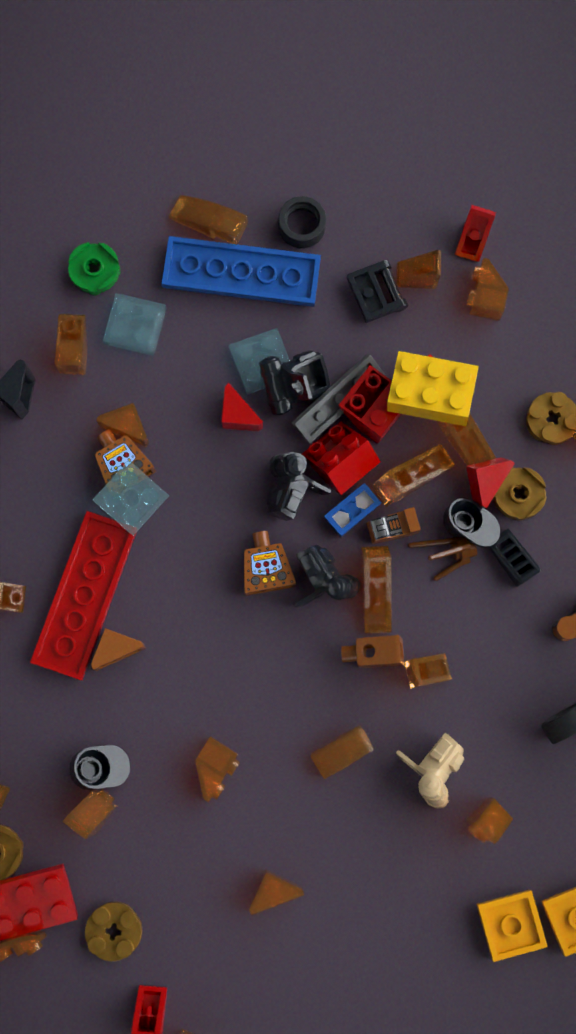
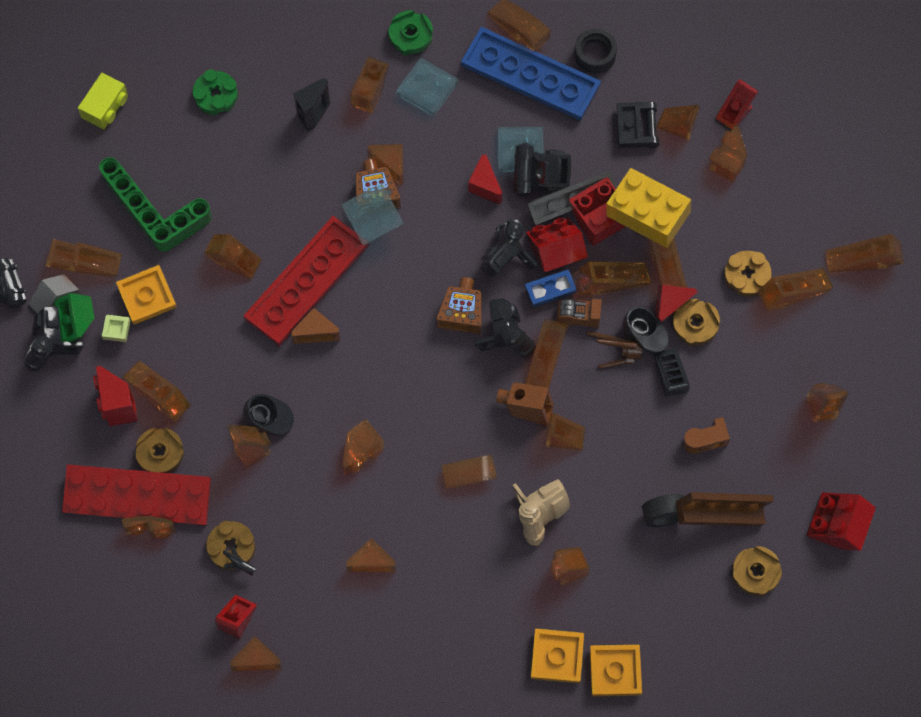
camera: 25 degrees right, 10 degrees down
(130, 954) = (238, 562): none -> black bar

